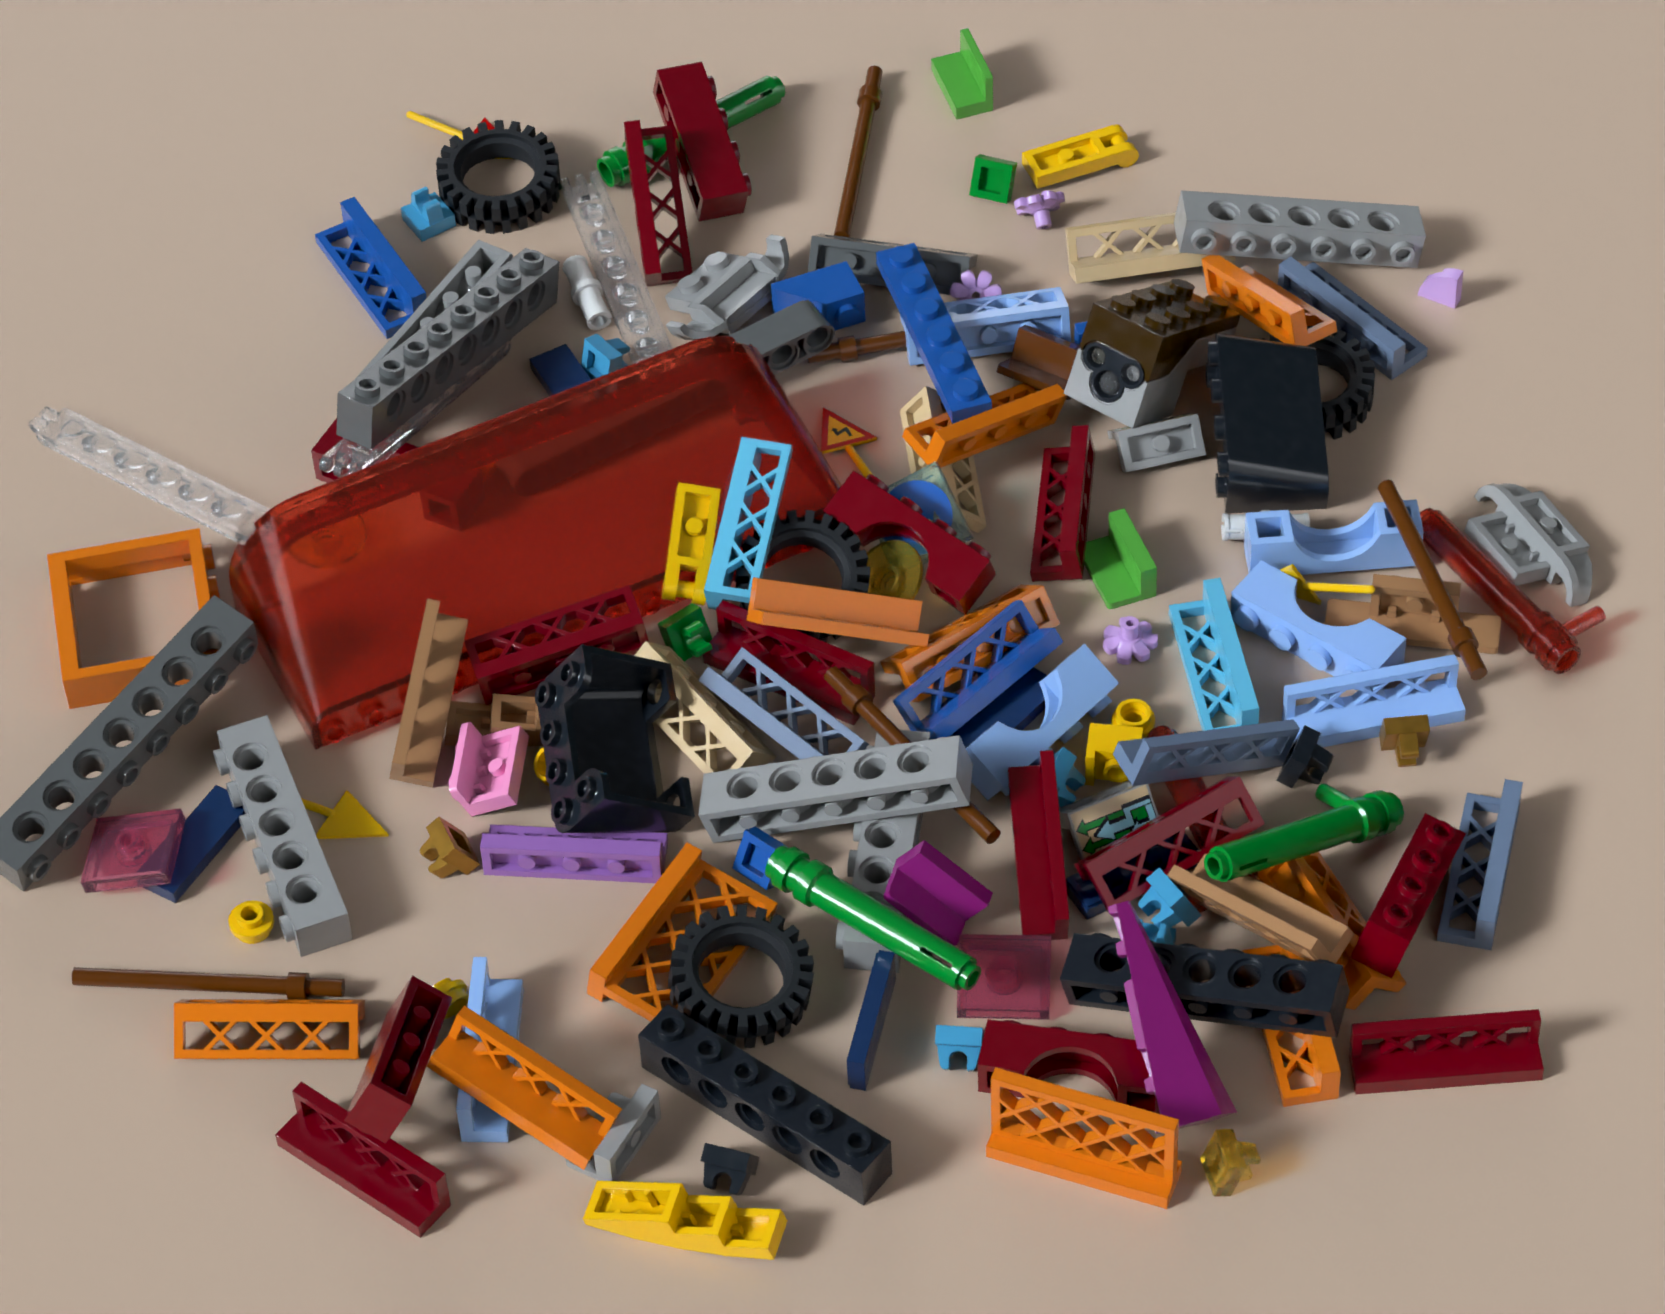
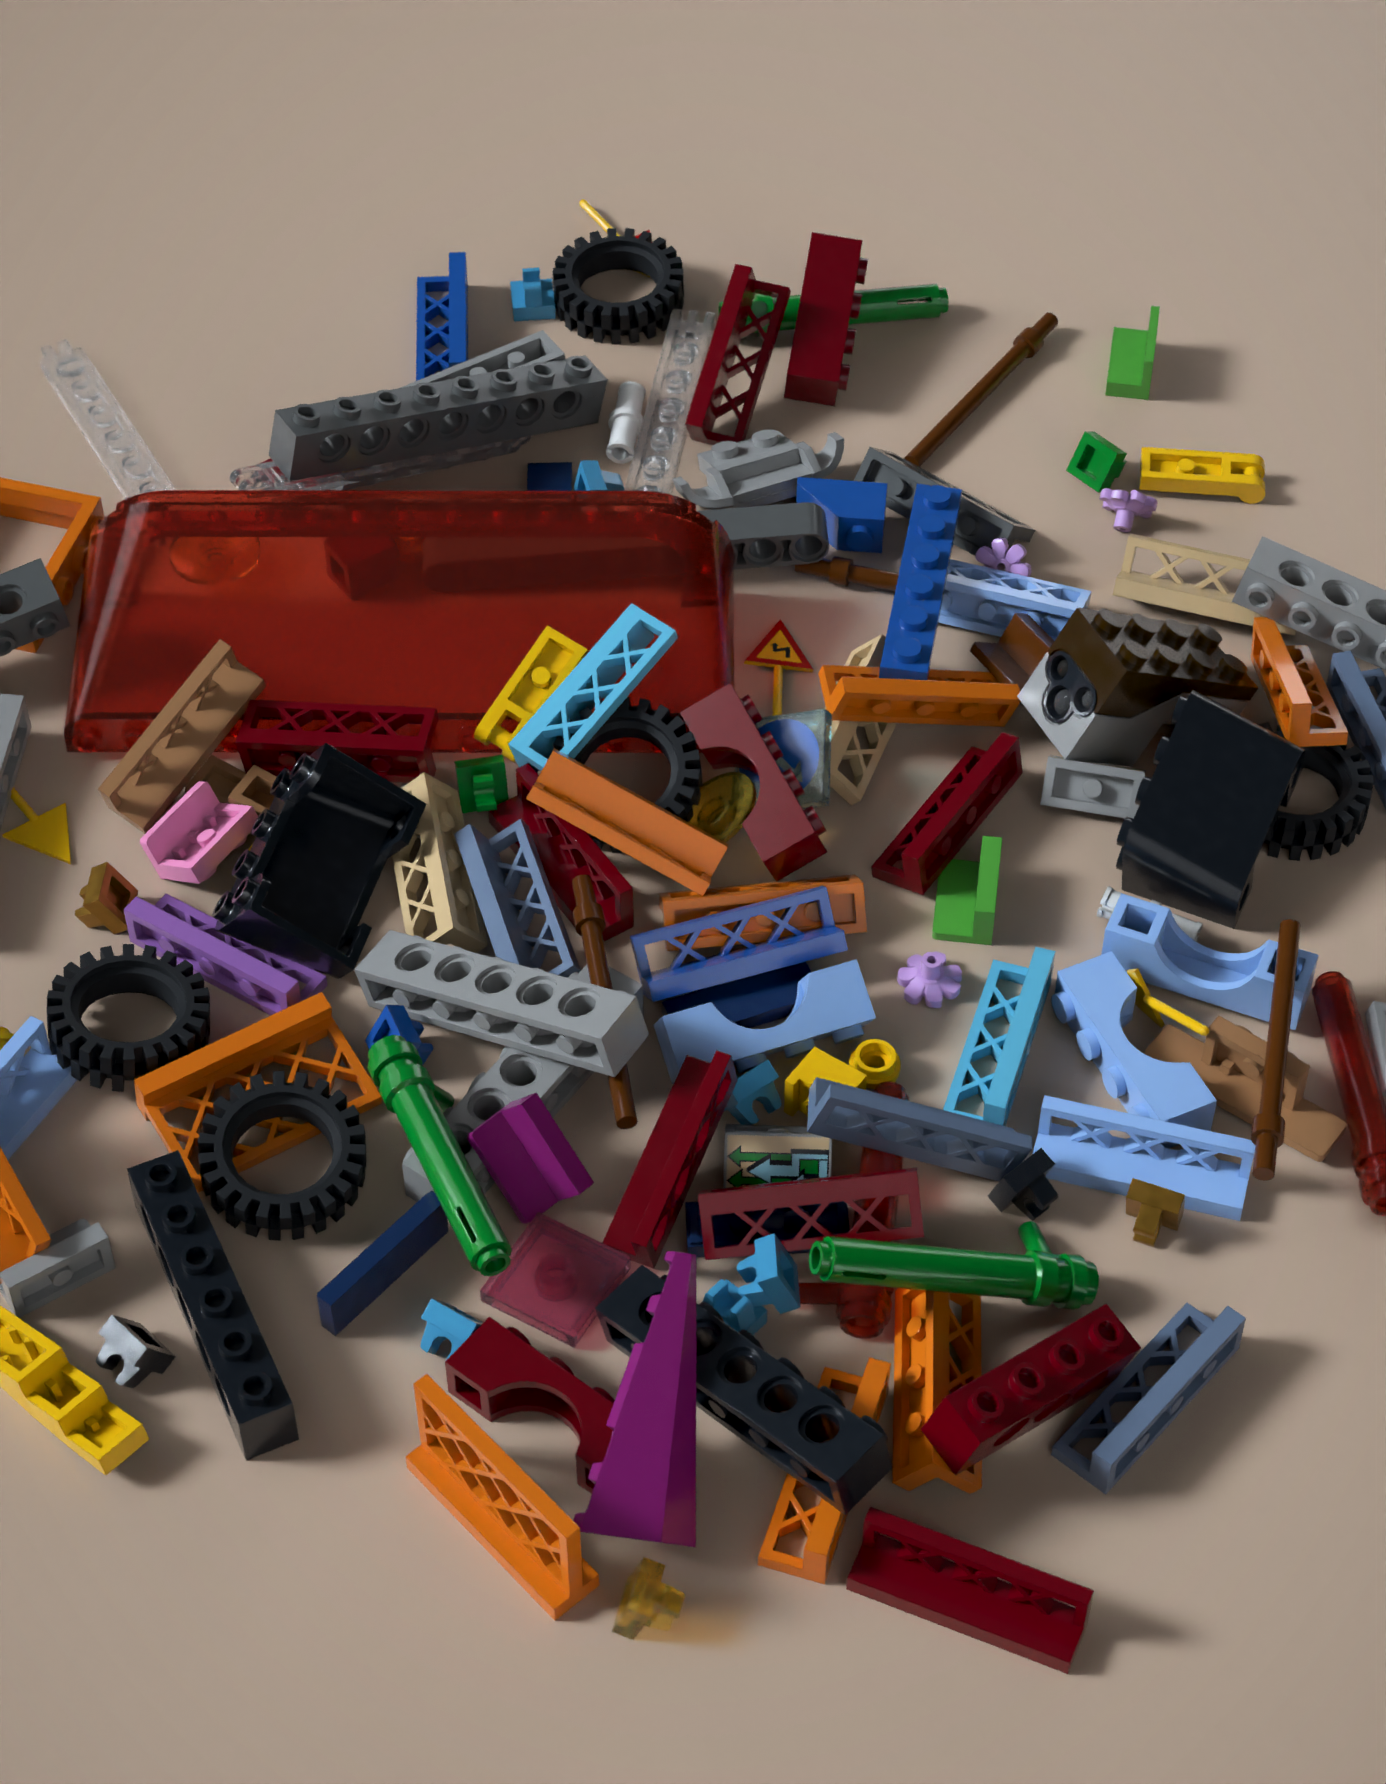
camera: 25 degrees right, 0 degrees up
(537, 891) = (117, 975): none -> black tyre
(1266, 913) = (858, 1343): medium nougat fence -> none

